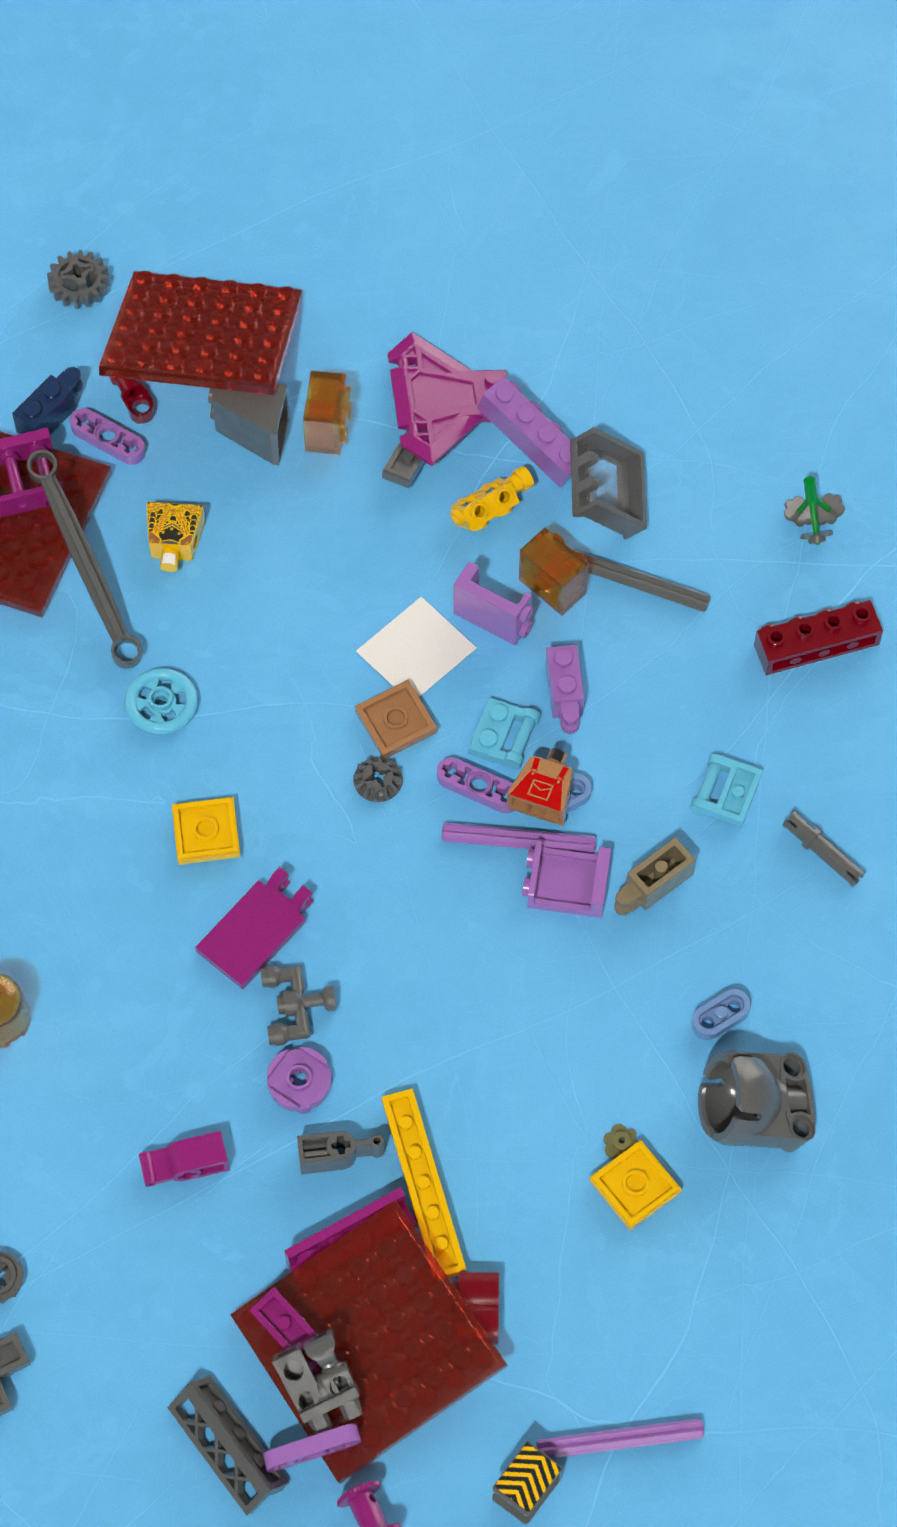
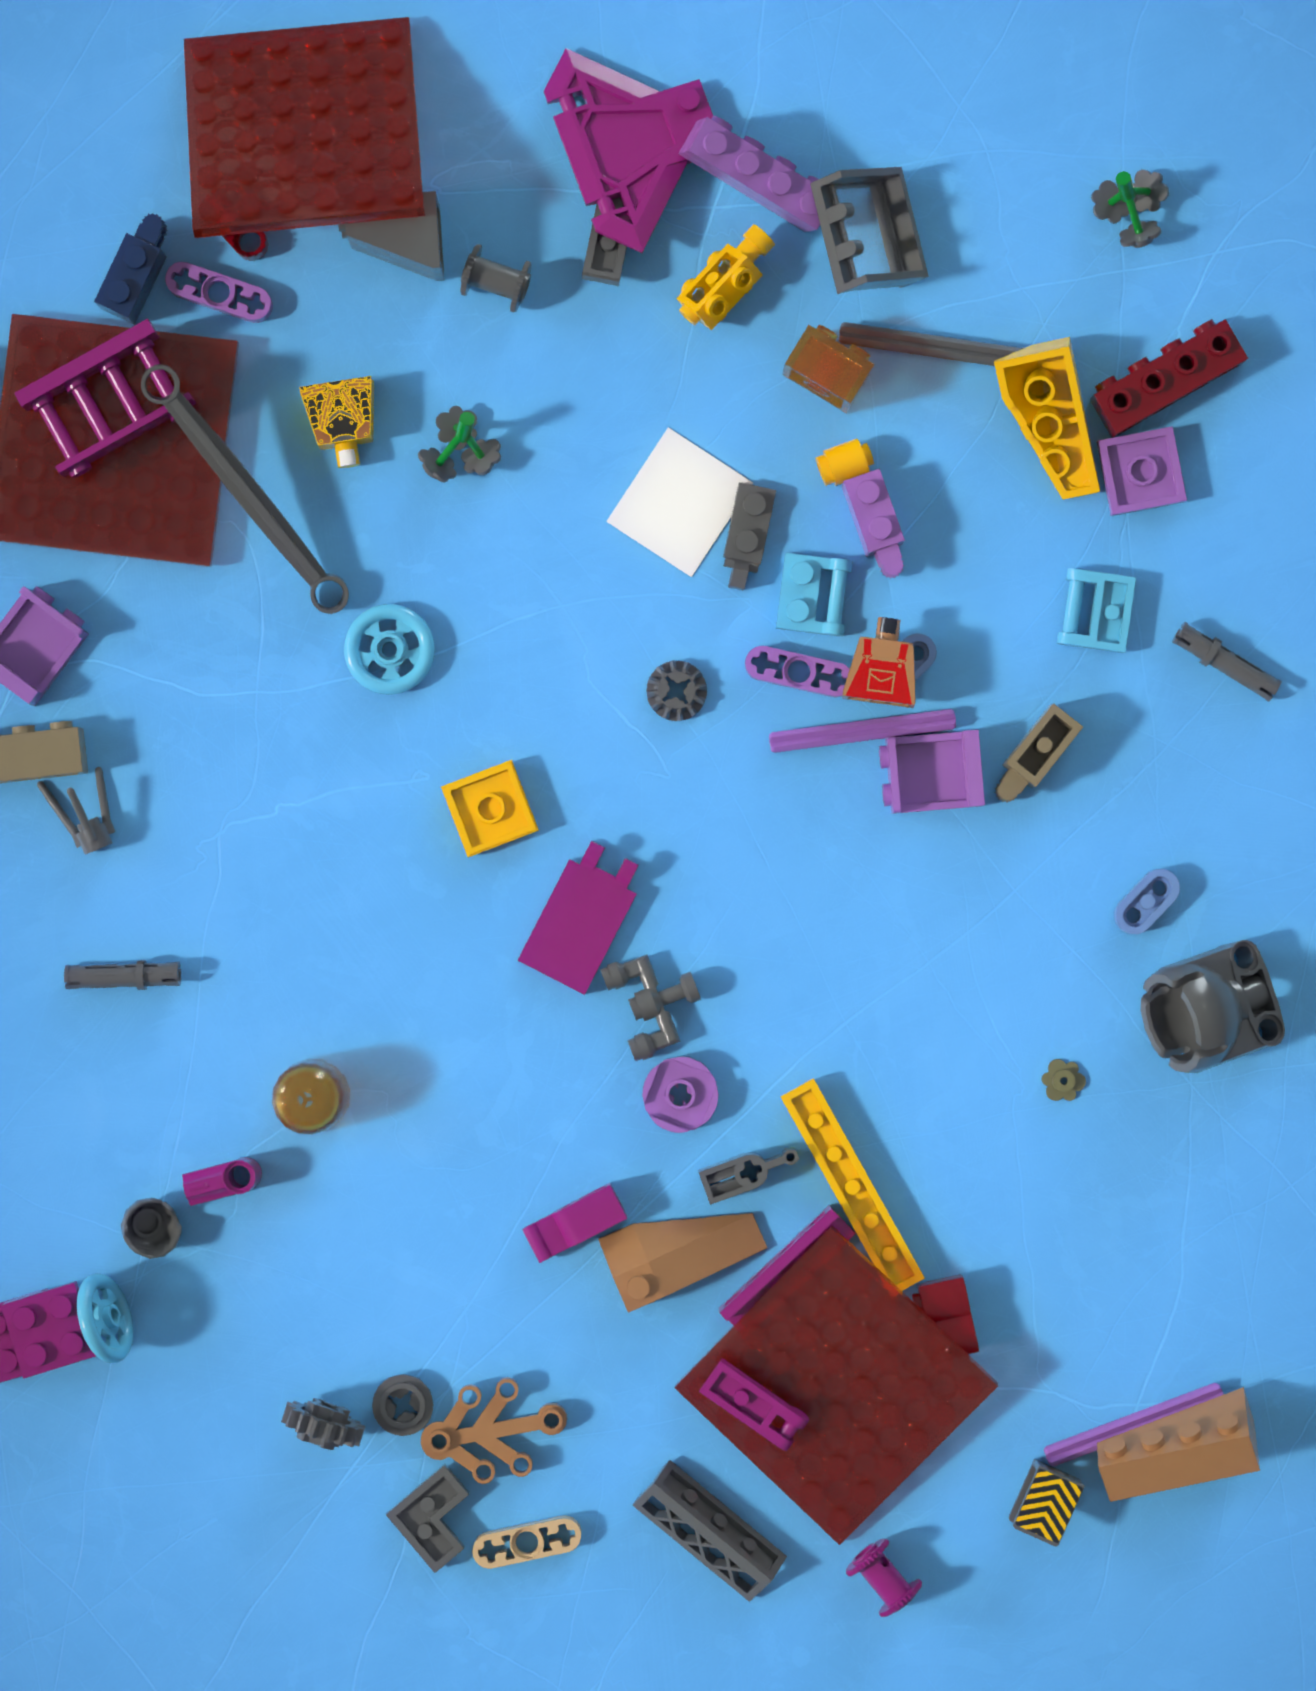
camera: 15 degrees left, 25 degrees up
(61, 1315) = (487, 1432): none -> medium nougat plant
(78, 279) = (104, 78): dark grey gear -> none
(93, 1410) = (497, 1539): none -> tan beam
(257, 561) = (458, 431): none -> dark grey plant
(258, 1207) = (672, 1254): none -> medium nougat wedge
(311, 1447) = (805, 1524): medium lavender beam -> none
(317, 464) = (495, 278): none -> dark grey hose
(321, 1392) = (803, 1470): dark grey hips -> none
(326, 412) = (489, 205): clear orange brick -> none
(396, 719) = (679, 606): medium nougat tile -> none
(463, 678) = (747, 532): none -> dark grey hinge
(490, 610) = (761, 442): medium lavender panel -> none
(549, 638) = (844, 462): none -> yellow brick
(635, 1185) = (1091, 1131): yellow plate -> none
(654, 1460) = (1181, 1449): none -> medium nougat wedge
(720, 636) = (1047, 402): none -> yellow wedge
(783, 698) = (1141, 471): none -> medium lavender plate

